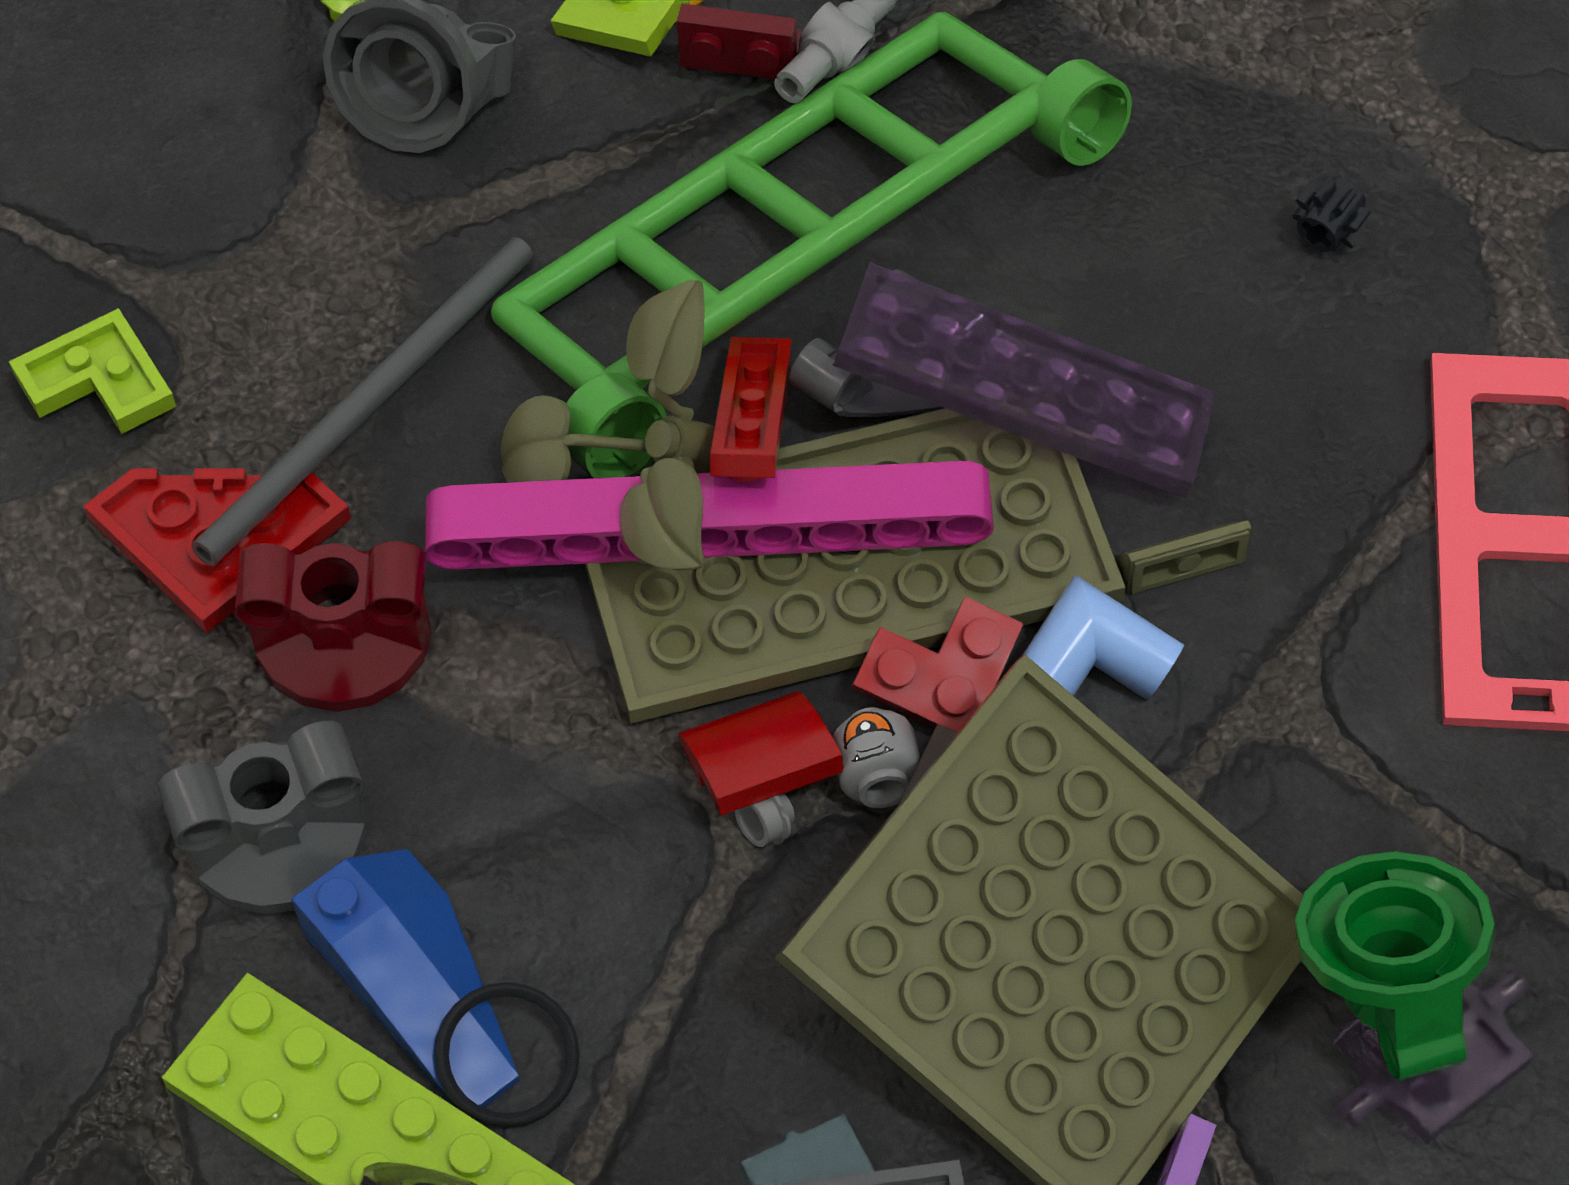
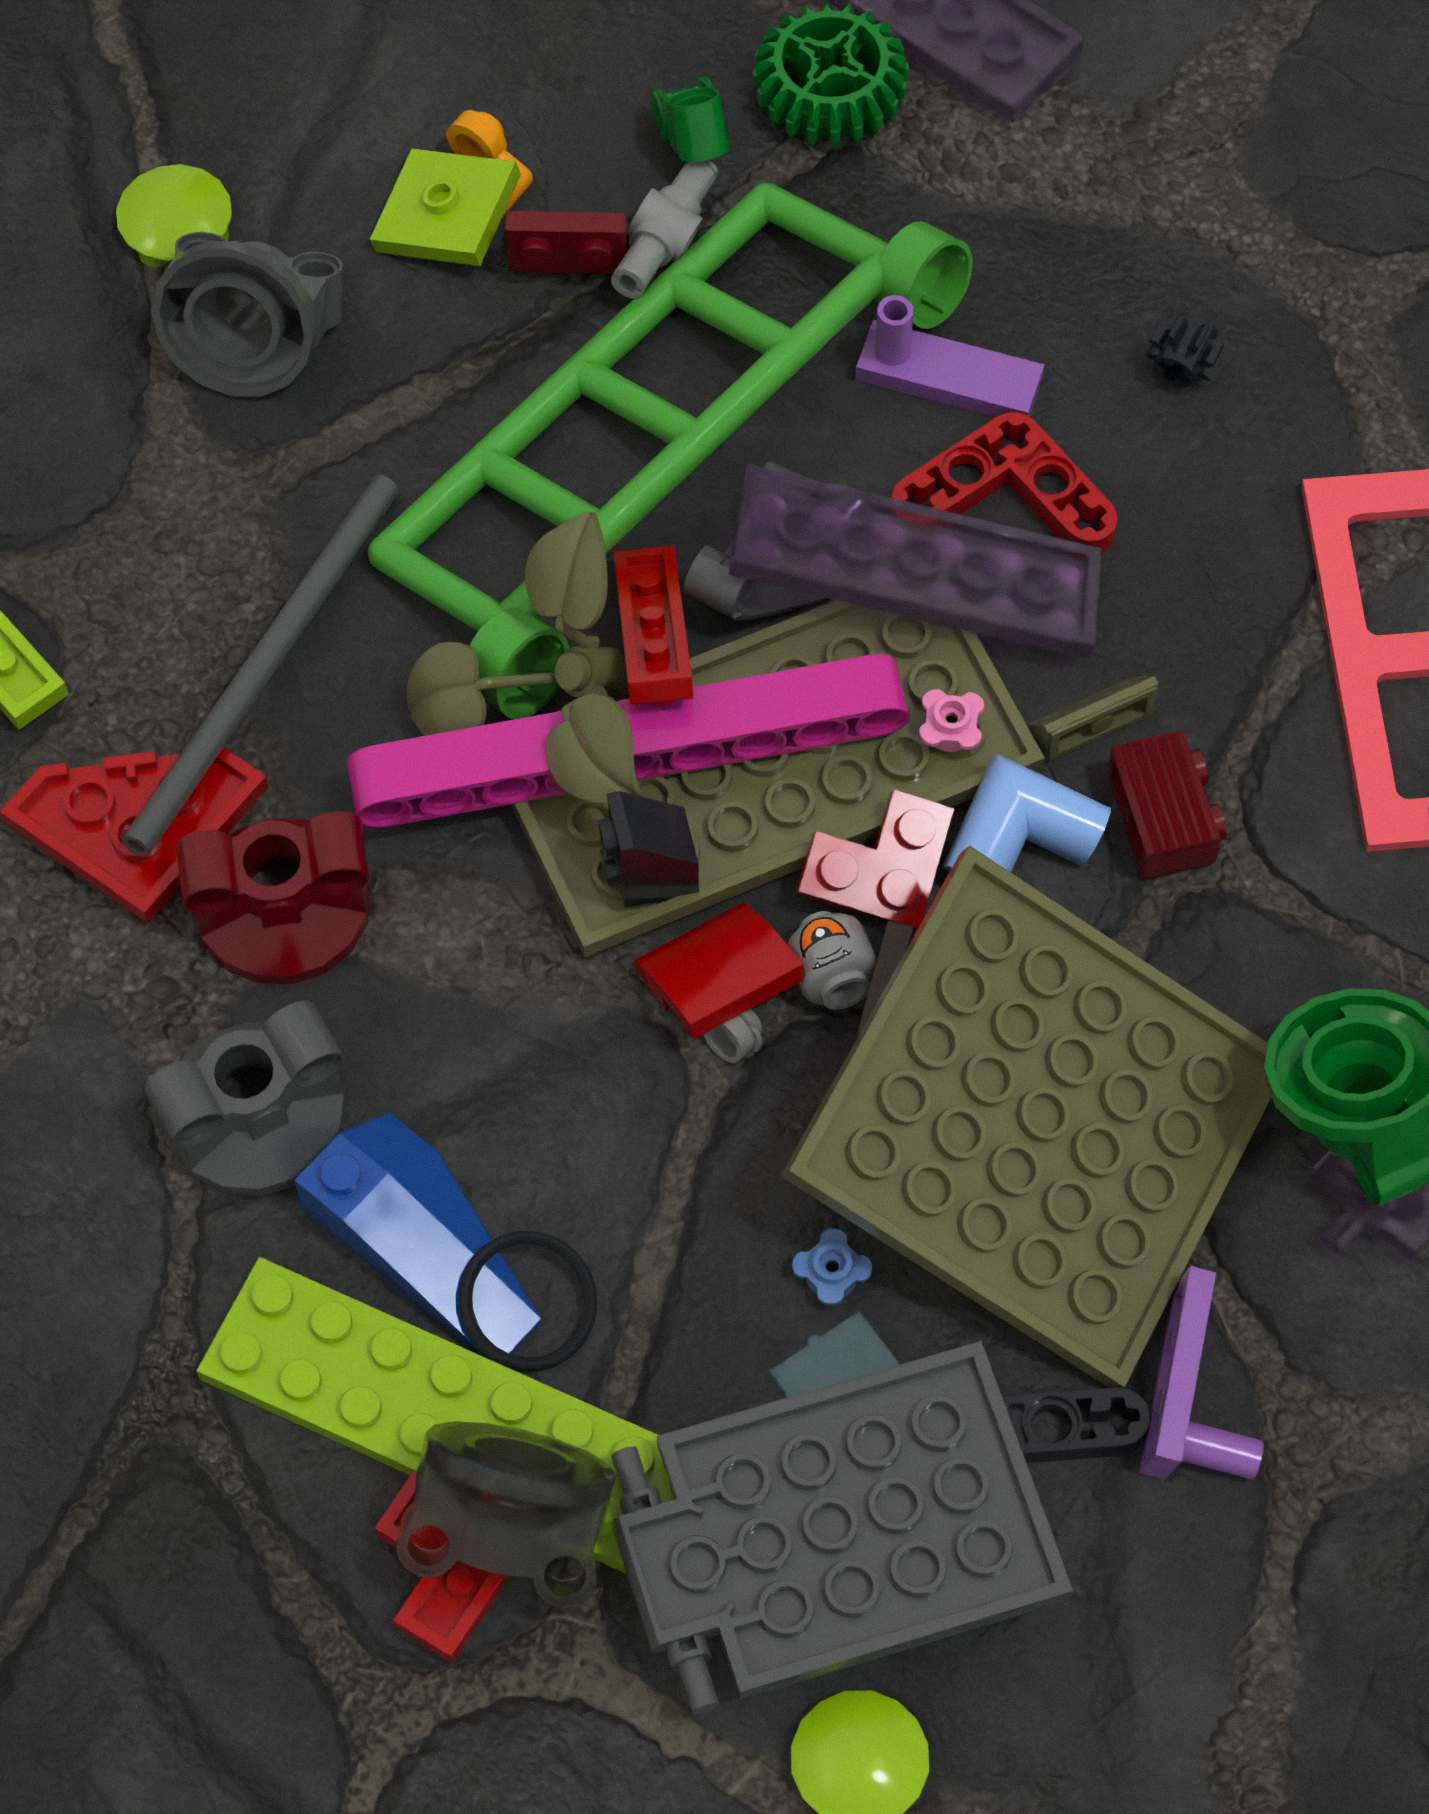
camera: 10 degrees left, 5 degrees up
(704, 620) = (647, 849): none -> black slope
(819, 1084) = (827, 1285): none -> medium blue plate
(1032, 552) = (946, 735): none -> bright pink plate
(1089, 205) = (944, 368): none -> medium lavender piece
(1146, 309) = (1019, 470): none -> red beam
(1241, 649) = (1165, 804): none -> dark red brick

